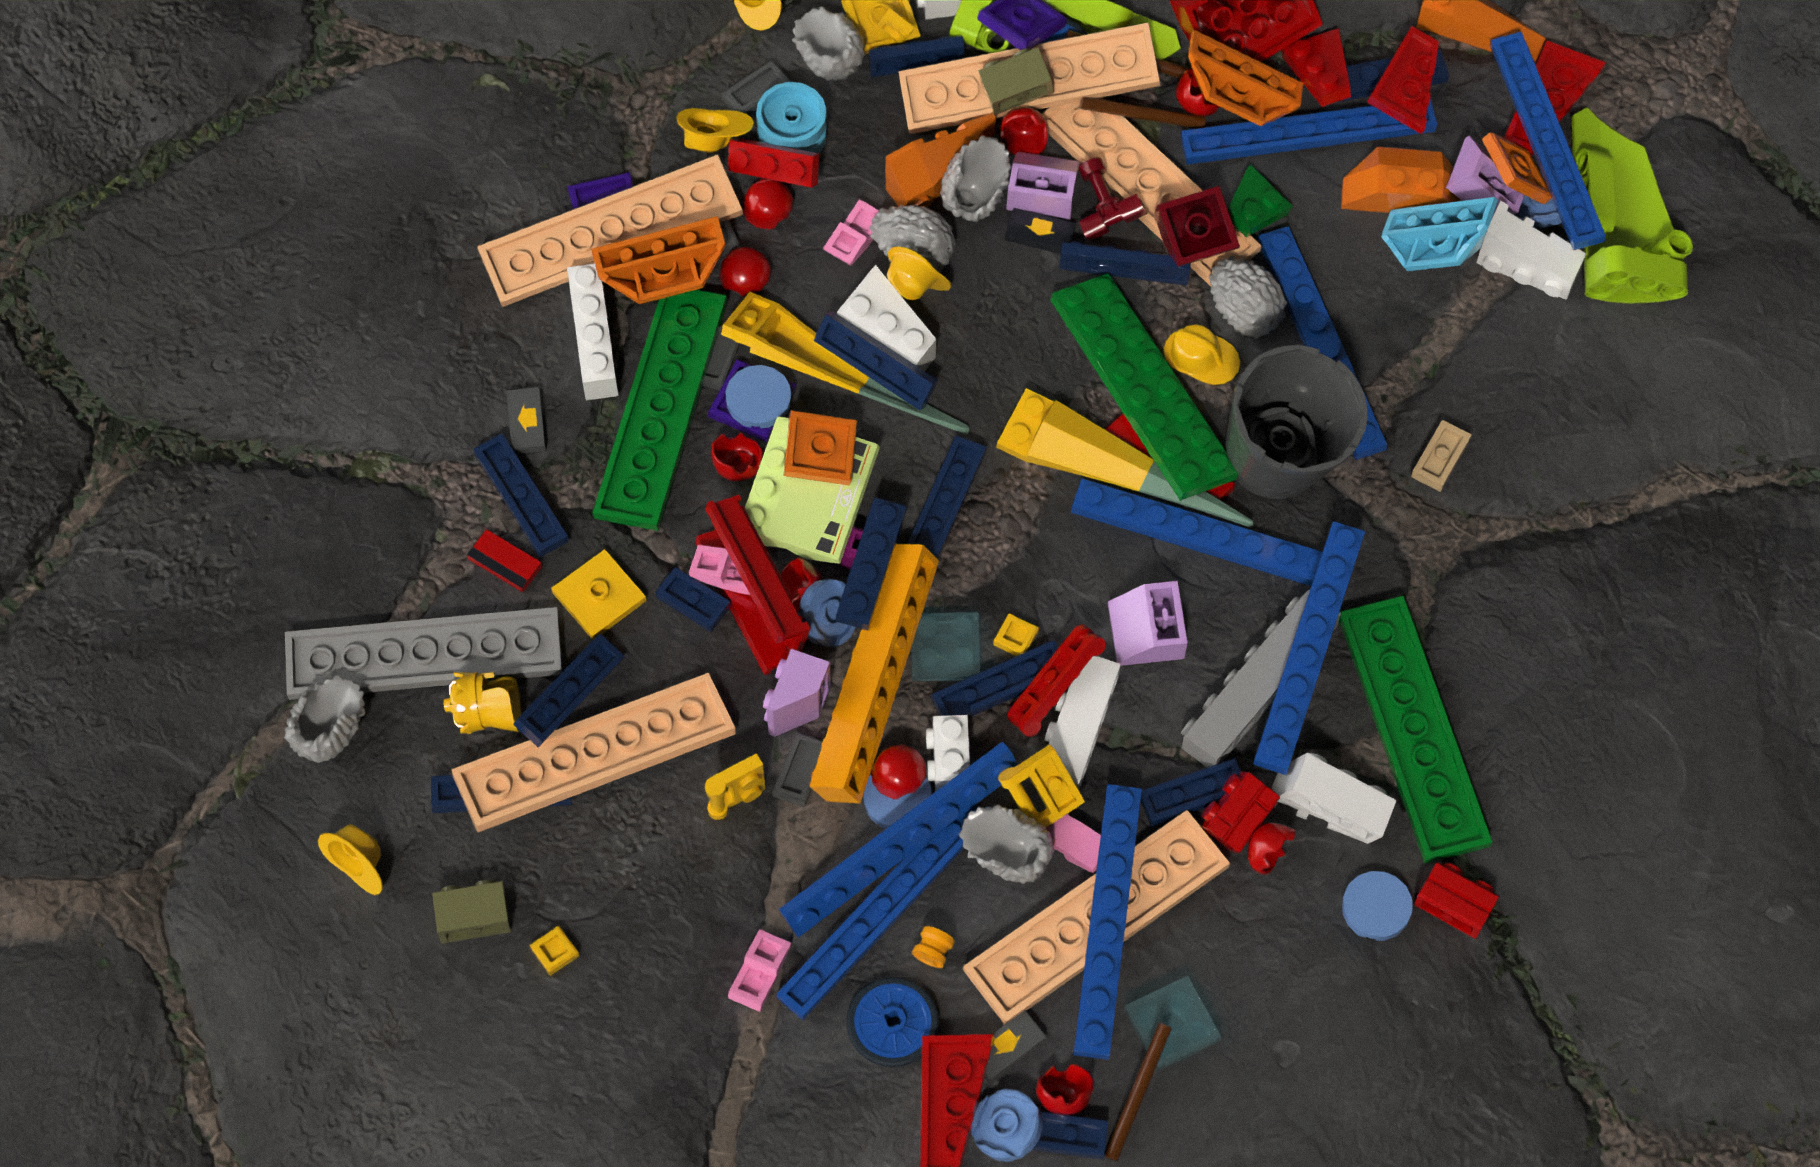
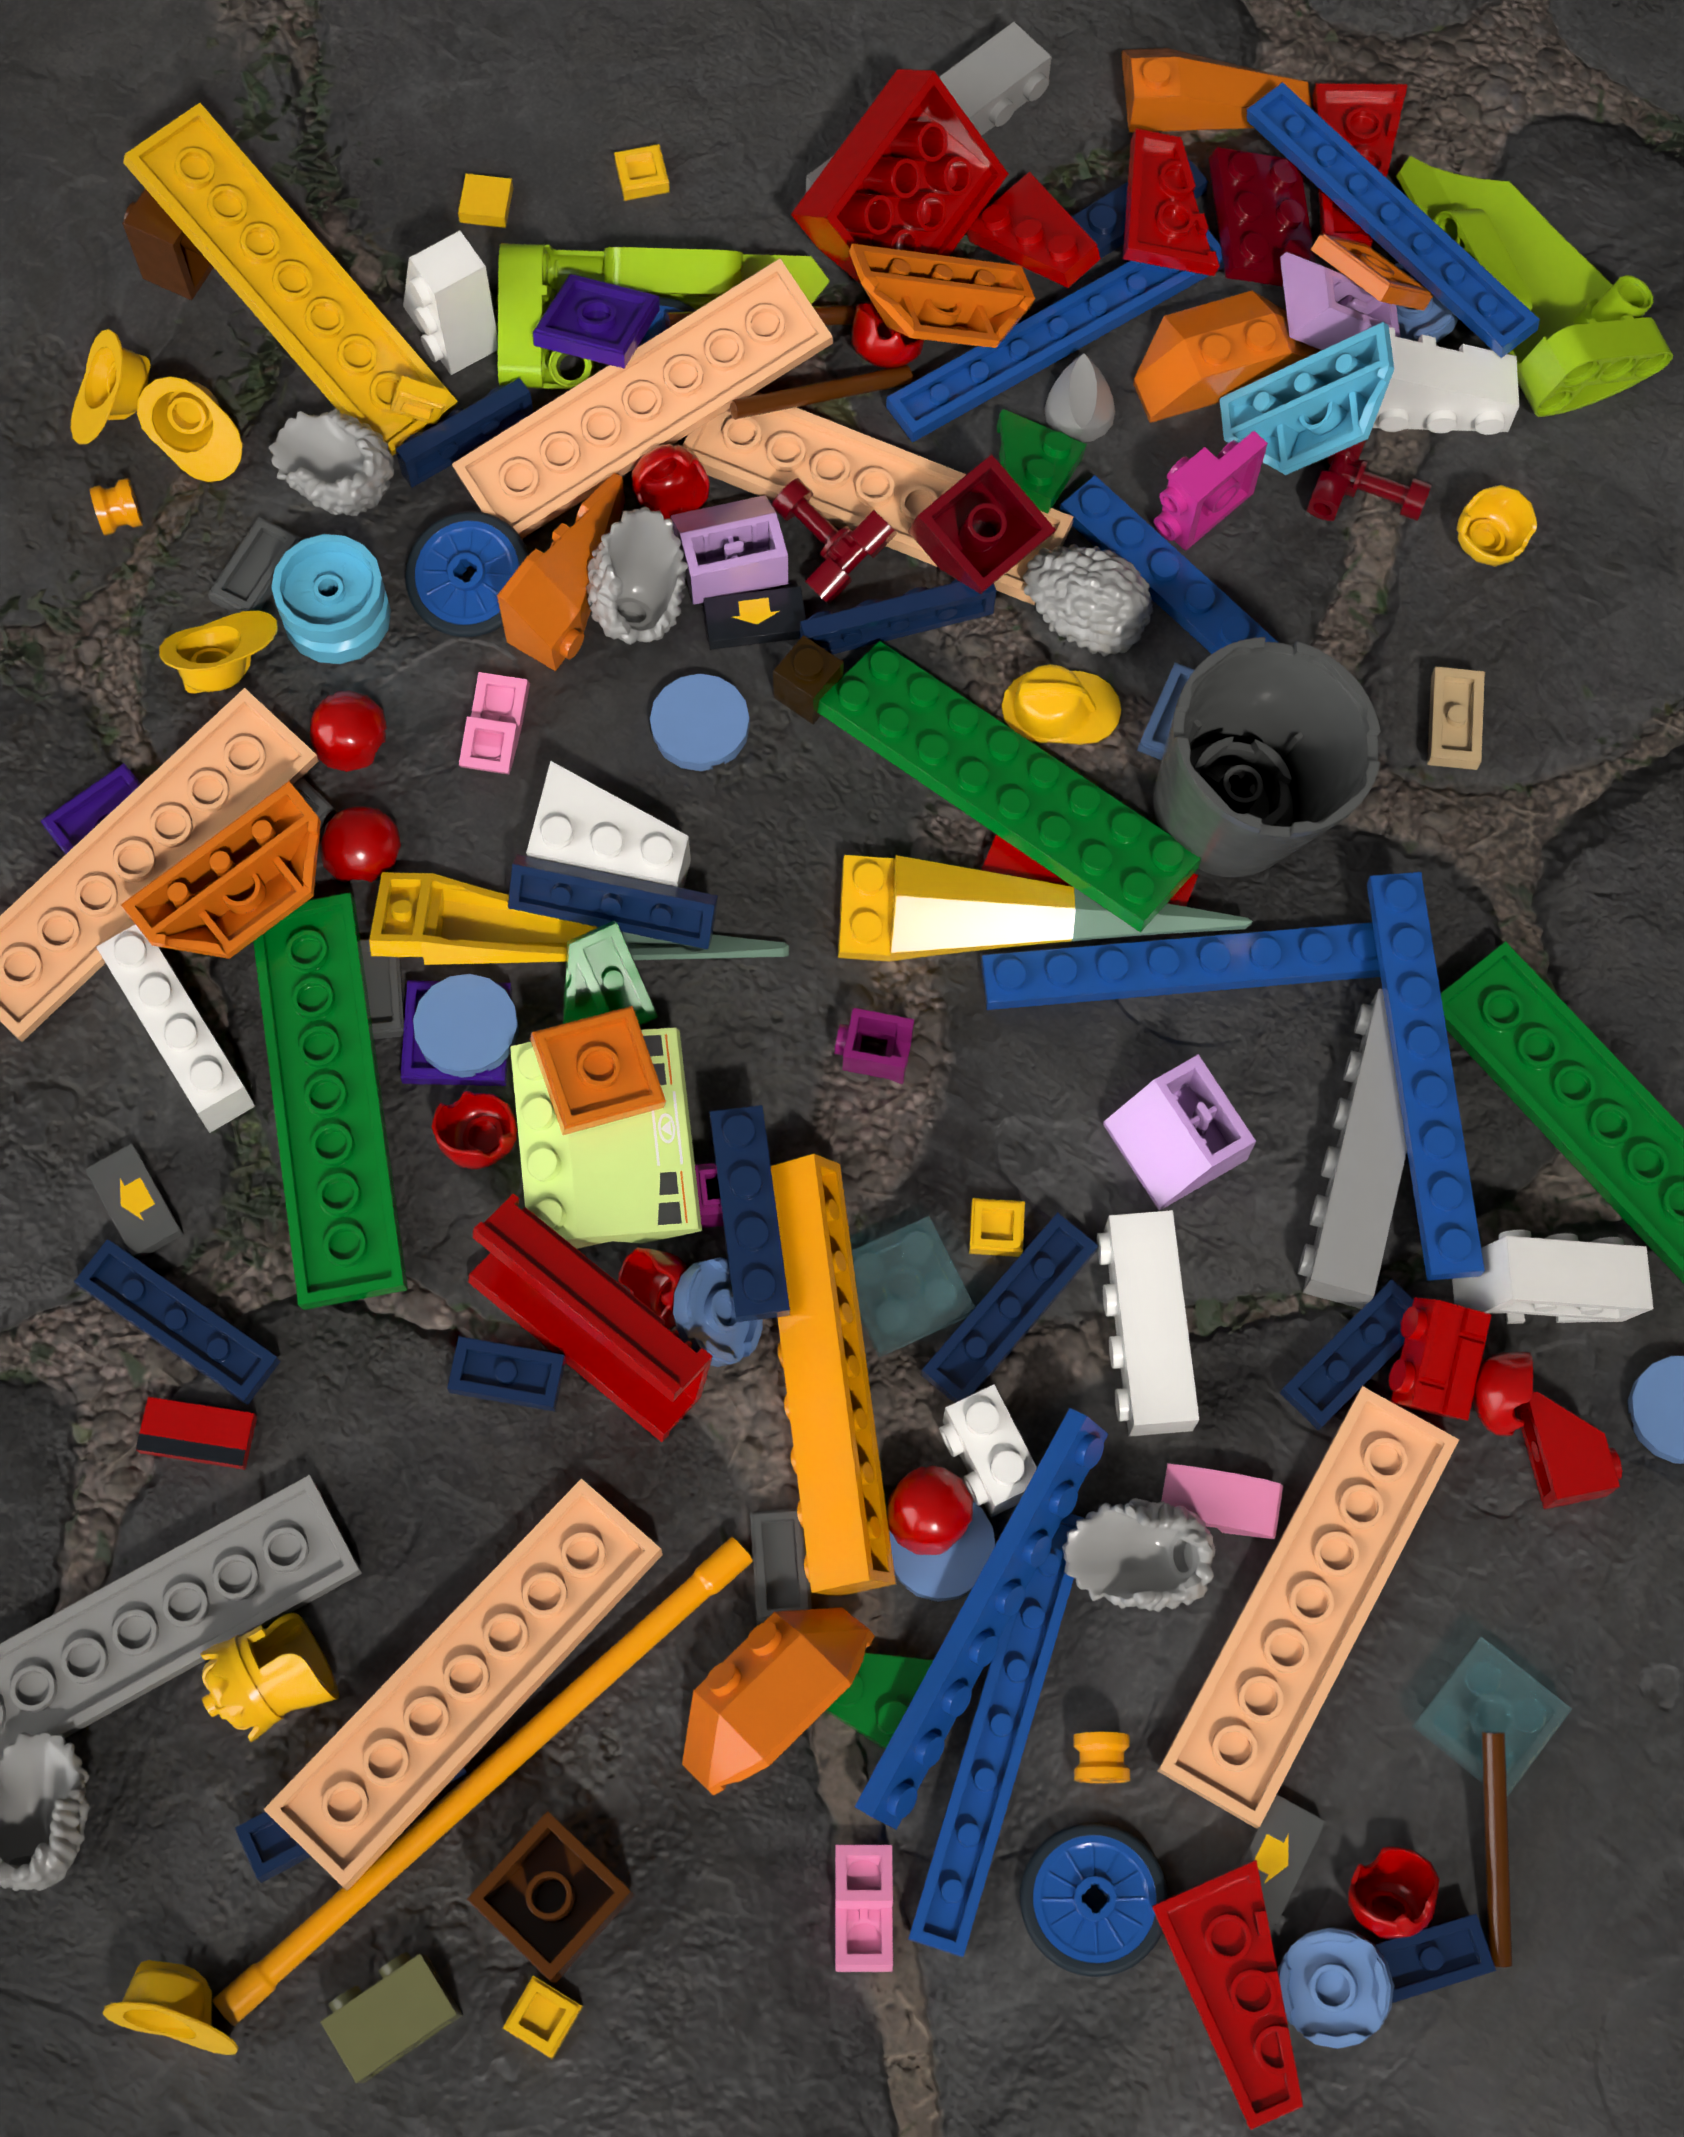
camera: 25 degrees left, 5 degrees up
(412, 862) = (262, 1977): none -> light orange piece
(568, 690) = (386, 1602): dark blue plate -> none
(587, 884) = (550, 1897): none -> reddish brown brick
(598, 594) = (362, 1425): yellow plate -> none
(690, 22) = (116, 506): none -> light orange wheel
(716, 568) = (521, 1313): bright pink slope -> none
(744, 783) = (713, 1631): yellow plate -> none
(759, 826) = (770, 1692): none -> orange wedge
(773, 162) = (331, 666): red plate -> none
(799, 693) = (734, 1455): lavender slope -> none
(814, 854) = (880, 1695): none -> green wing
(851, 399) = (603, 977): none -> wing
(869, 124) = (442, 558): none -> blue wheel
(913, 274) = (611, 752): yellow piece -> none
(916, 230) = (583, 698): light grey piece -> none
(948, 495) = (805, 1061): dark blue plate -> none
(978, 279) = (699, 722): none -> medium blue tile
(999, 495) = (880, 1028): none -> magenta window
(1016, 80) = (630, 412): olive brick -> none
(1050, 276) = (806, 677): none -> dark brown brick
(1051, 783) = (1162, 1435): yellow plate -> none
(1055, 679) = (1092, 1274): red plate -> none
(1107, 922) = (1336, 1611): blue plate -> none
(1291, 899) = (1567, 1454): none -> red slope
(1302, 180) = (1080, 402): none -> light grey piece
(1347, 262) = (1208, 489): none -> dark pink plate
(1448, 287) = (1349, 474): none -> dark red bar
(1469, 105) = (1259, 214): none -> dark red plate
(1523, 351) = (1496, 525): none -> yellow hair

